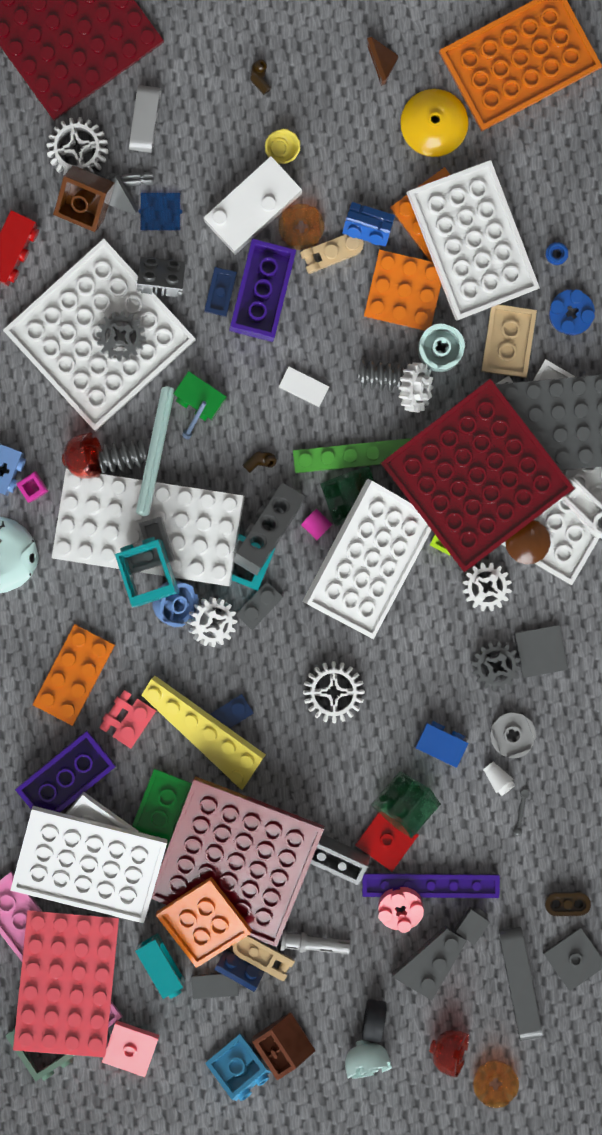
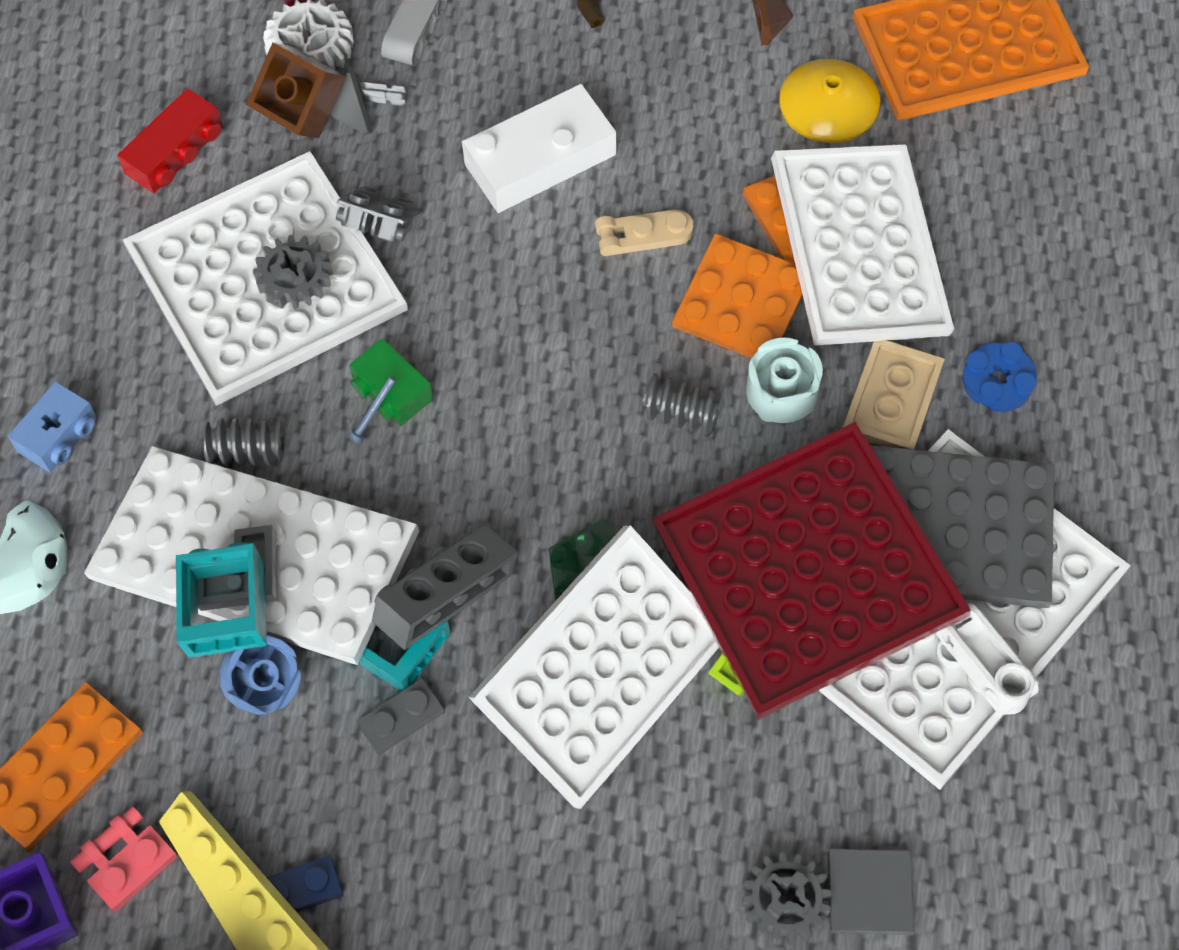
camera: 15 degrees right, 25 degrees down
(32, 487) = (90, 462): dark pink brick -> none
(82, 456) = (181, 421): clear red cylinder -> none
(155, 451) = (294, 442): light aqua axle -> none
(160, 212) = (403, 139): clear blue piece -> none
(203, 618) = (313, 736): white gear -> none
(220, 292) = (462, 251): dark blue plate -> none
(260, 459) = (459, 492): dark brown arm -> none
(262, 290) = (524, 255): dark purple brick -> none
(282, 146) = (604, 81): light yellow hair -> none
(303, 386) = (556, 403): white tile -> none
(309, 216) = (602, 174): clear orange plate -> none
(316, 524) = (525, 605): dark pink brick -> none
(333, 676) = (507, 888): white gear -> none
(345, 455) = (577, 511): bright green plate -> none
(368, 224) = (705, 199): blue brick -> none
(416, 387) = (732, 425): white gear -> none
(493, 577) = (802, 746): white gear -> none
(529, 543) = (877, 697): reddish brown dish -> none
(556, 246) = (990, 284): blue plate -> none

